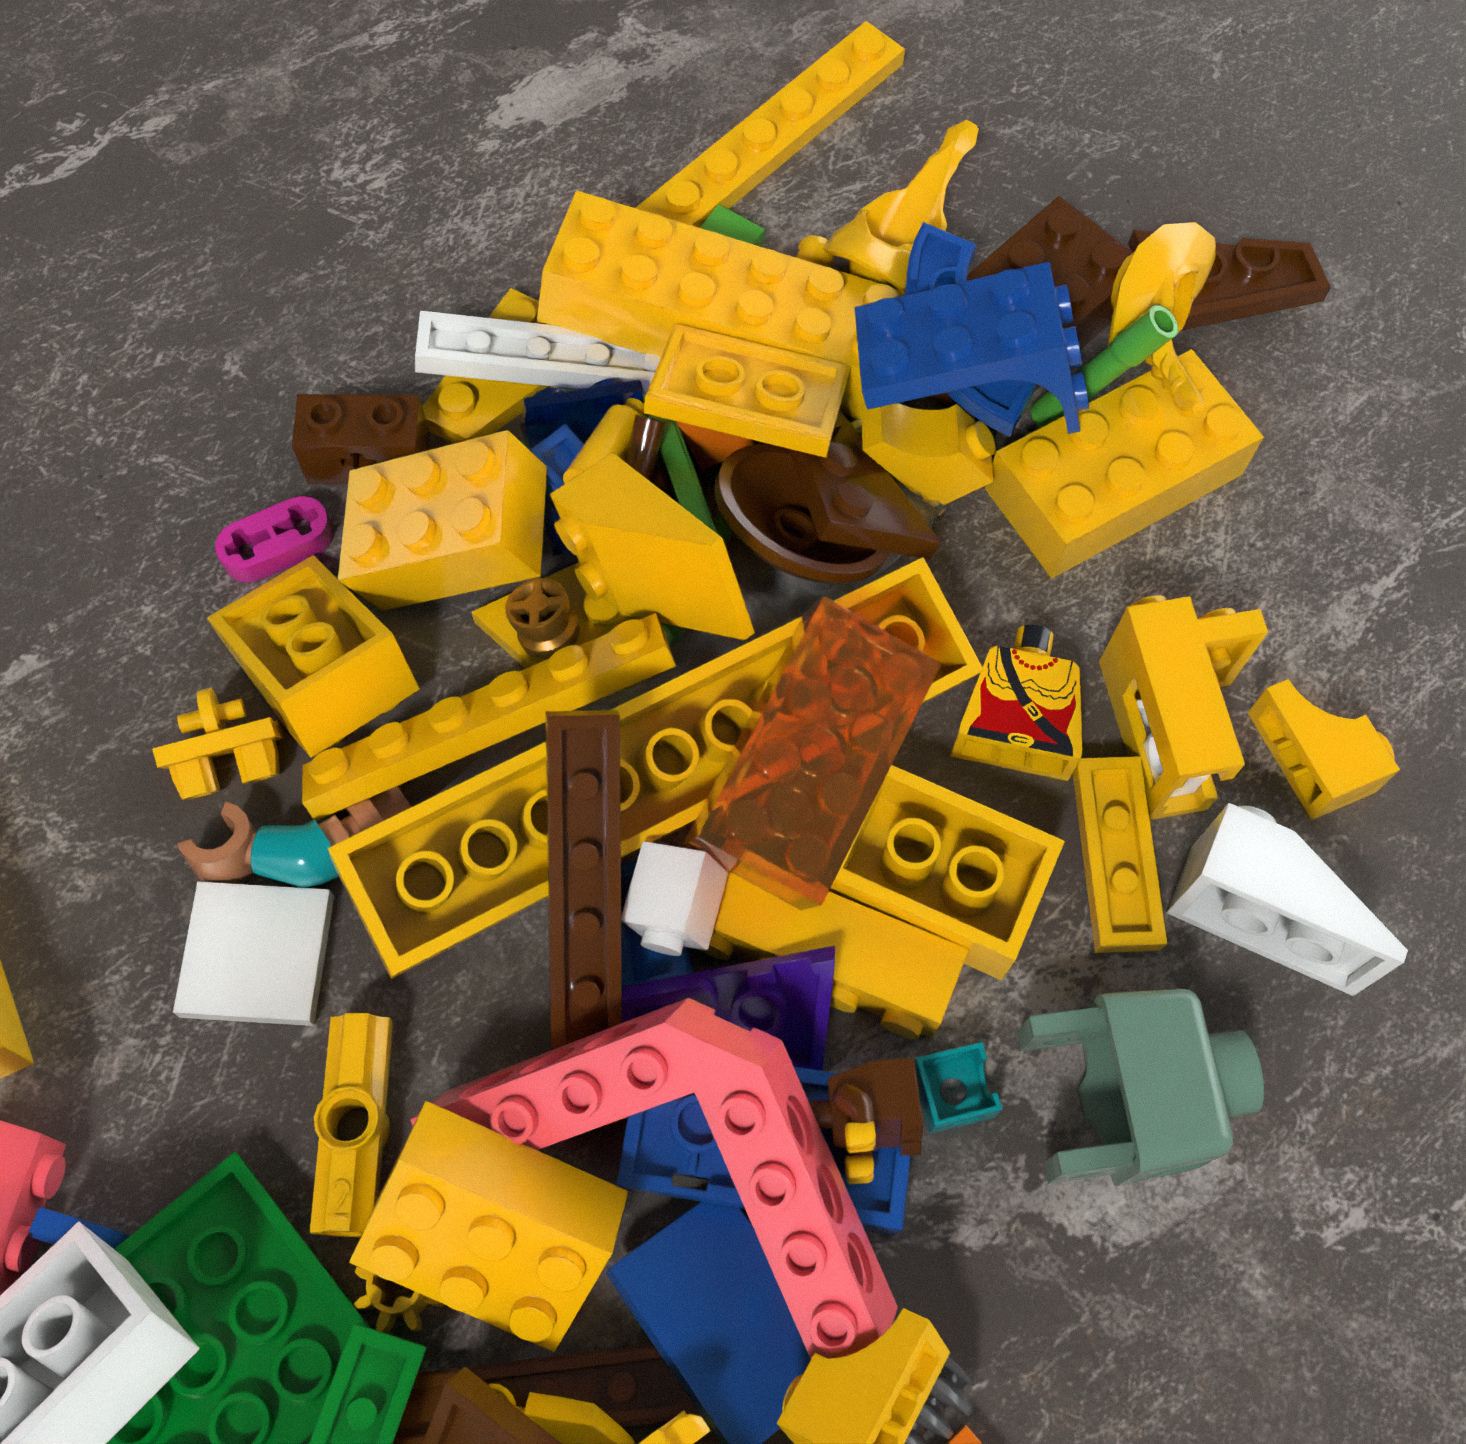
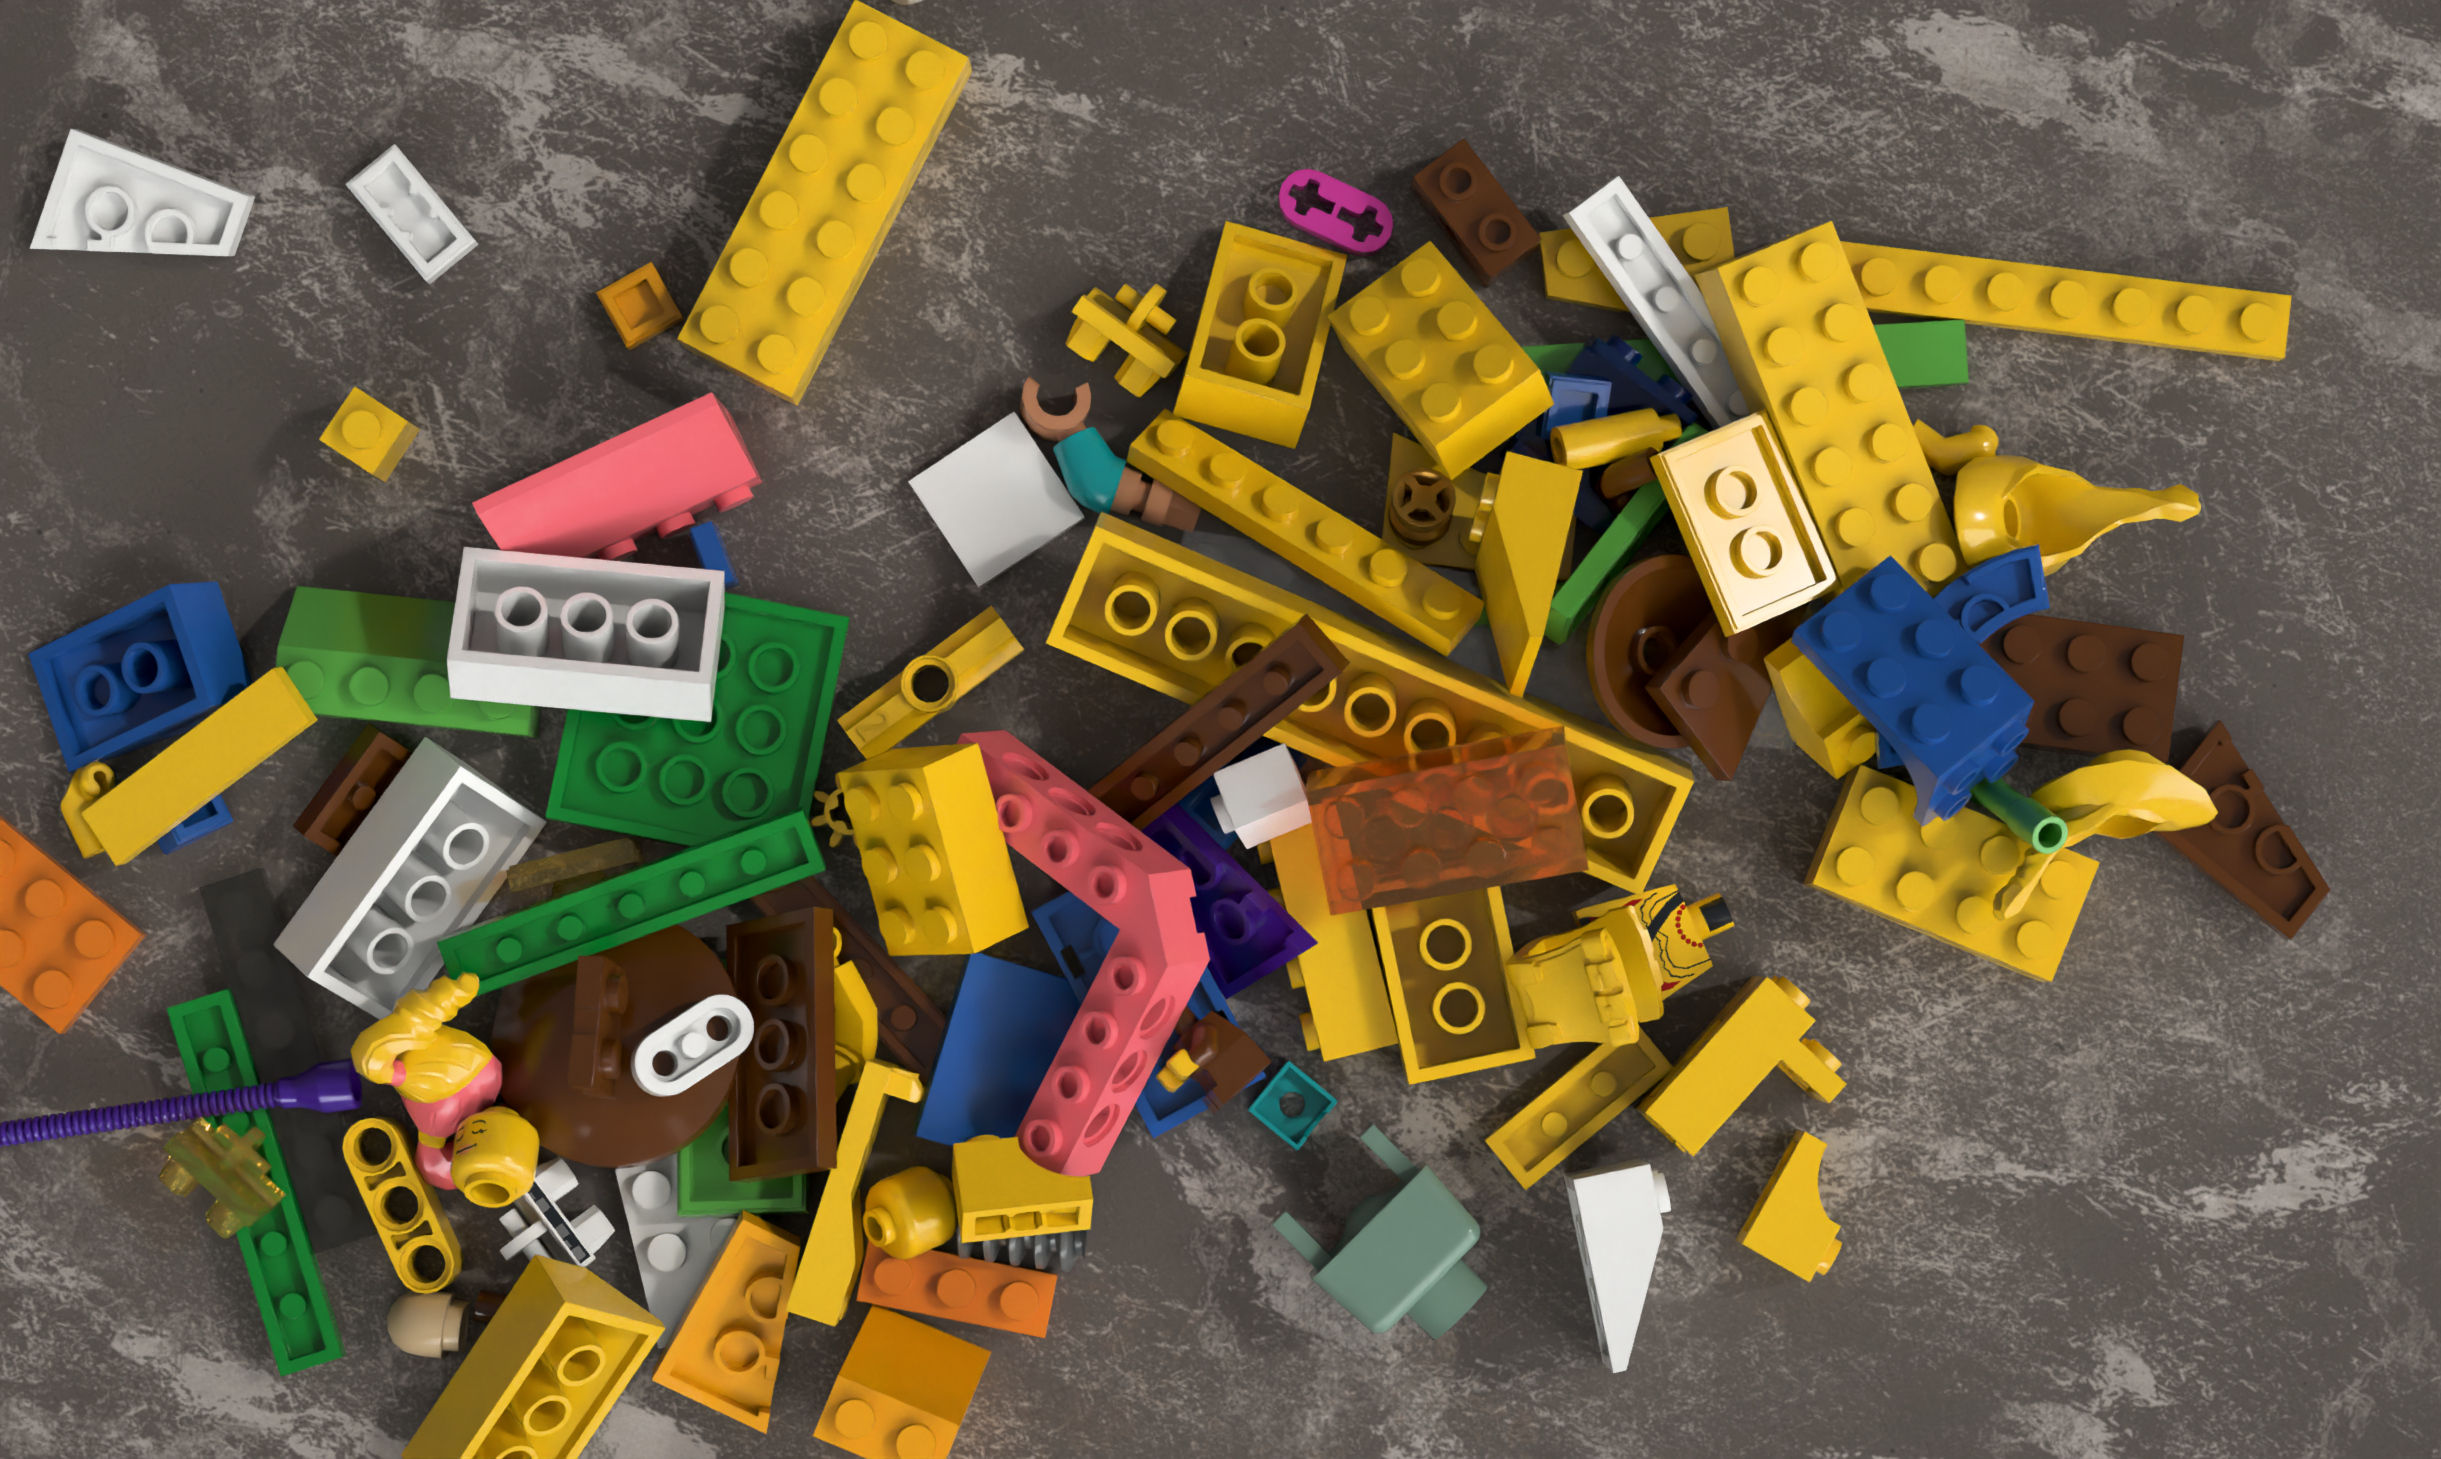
camera: 50 degrees right, 20 degrees up
(1031, 753) = (1589, 982): none -> yellow piece

